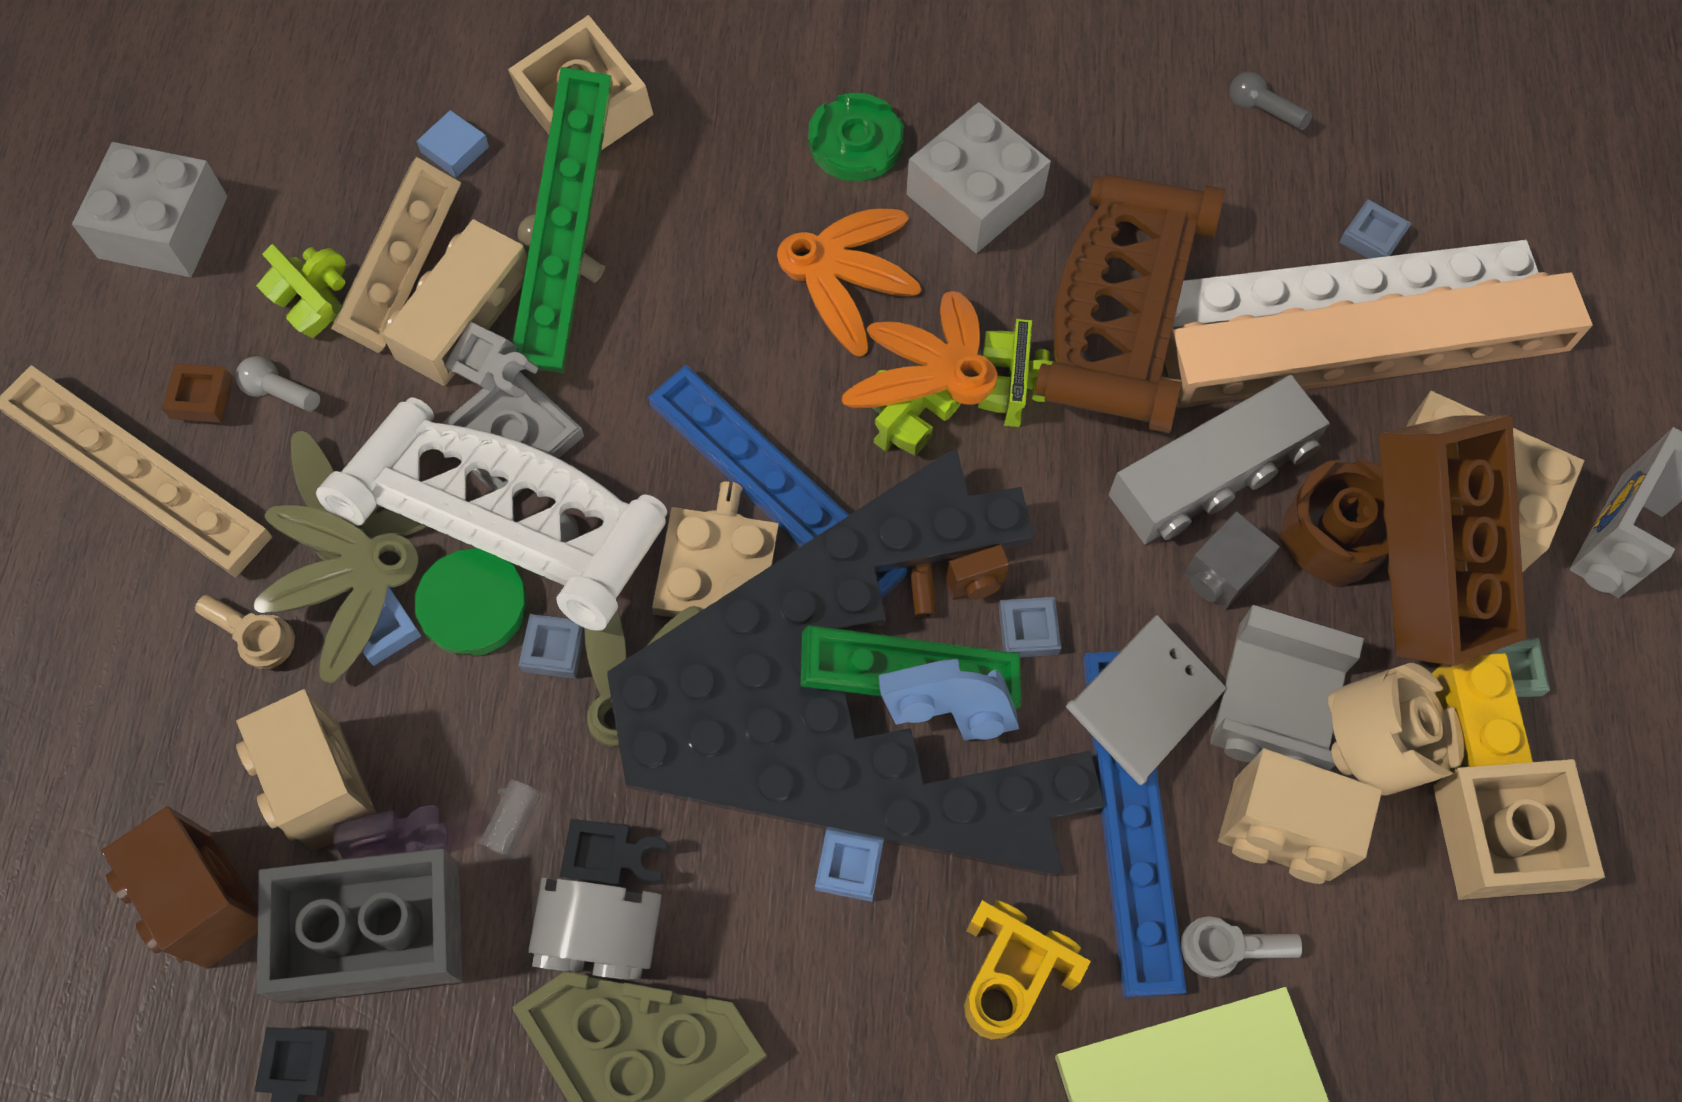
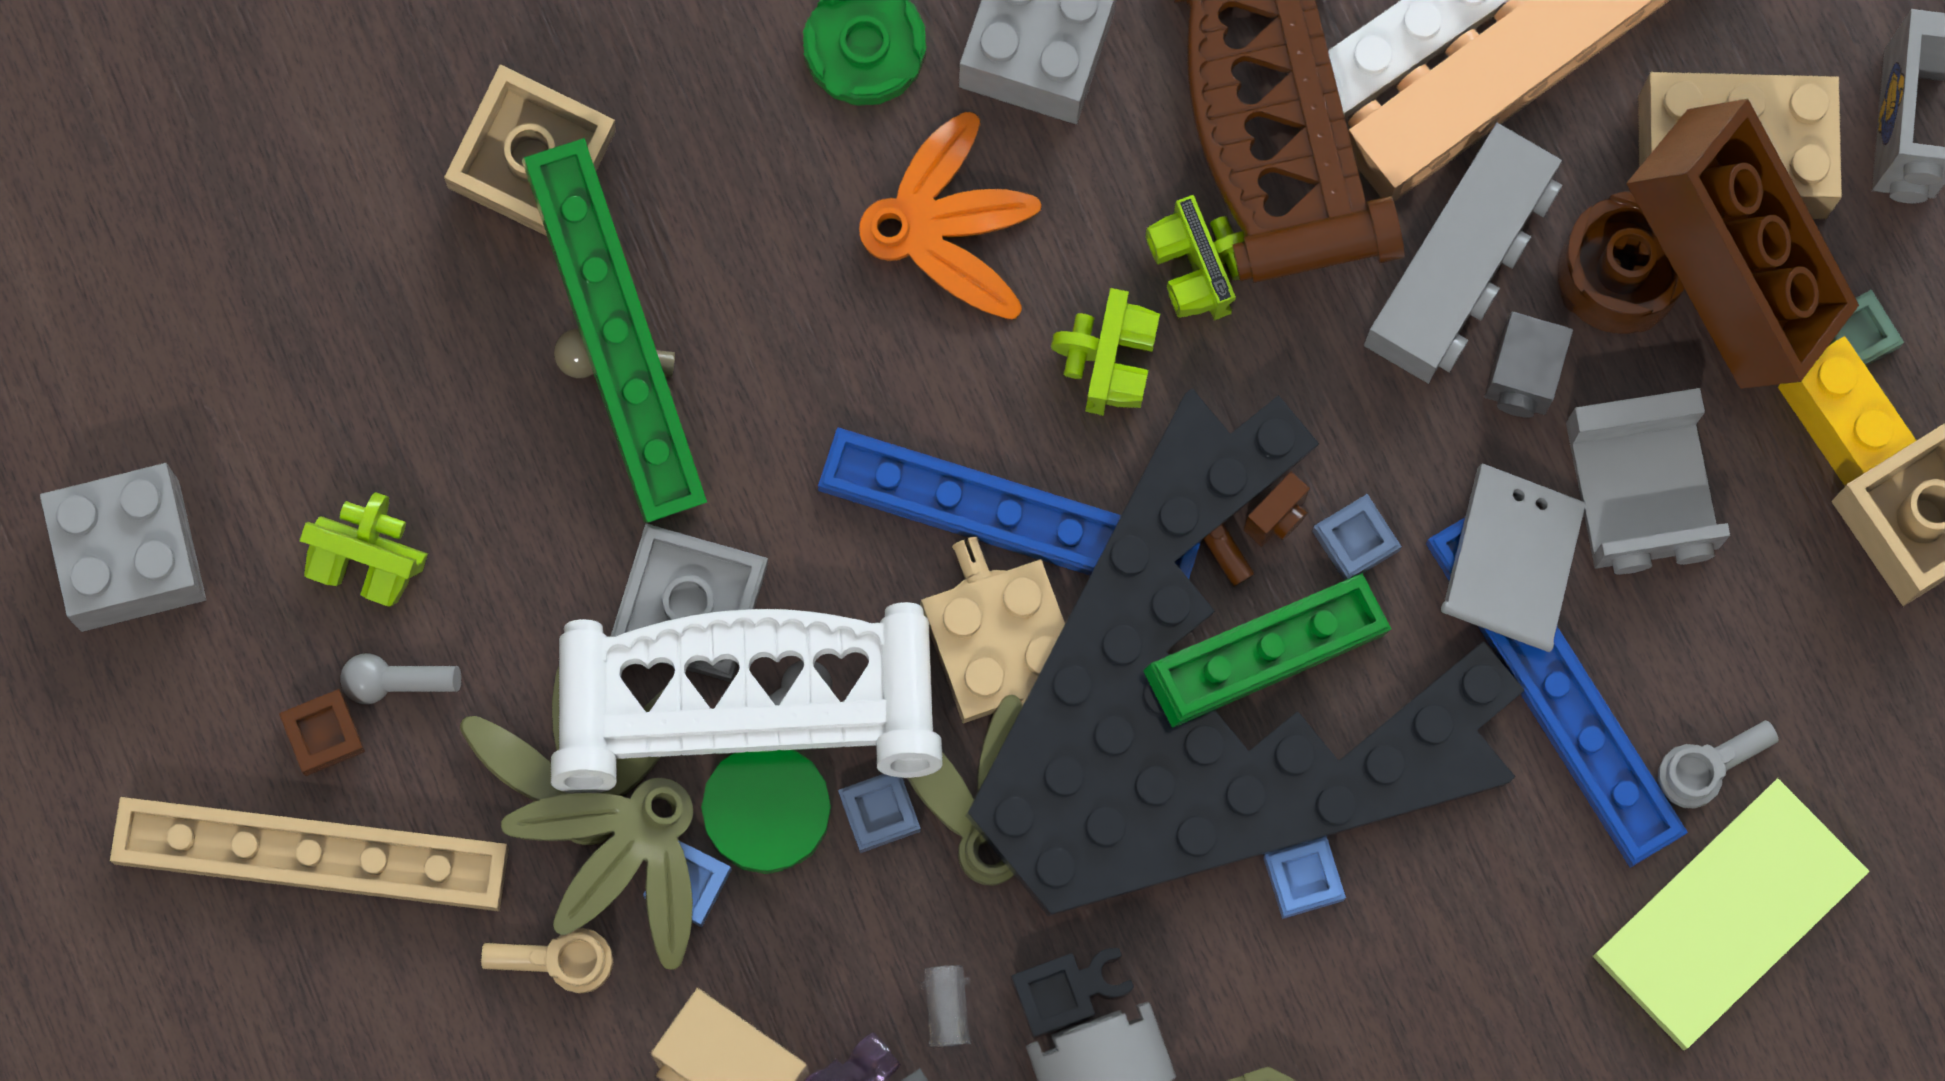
camera: 30 degrees left, 10 degrees up
(396, 254) = (438, 458): tan plate -> none
(452, 143) = (404, 285): medium blue tile -> none
(466, 285) = (542, 481): tan brick -> none
(488, 360) = (622, 535): light grey plate -> none
(942, 363) = (1095, 287): orange plant -> none
(976, 700) = (1352, 656): medium blue plate -> none
(1017, 966) = (1518, 889): yellow pin -> none
(1299, 817) = (1717, 610): tan brick -> none
(1395, 730) = (1771, 472): tan brick -> none

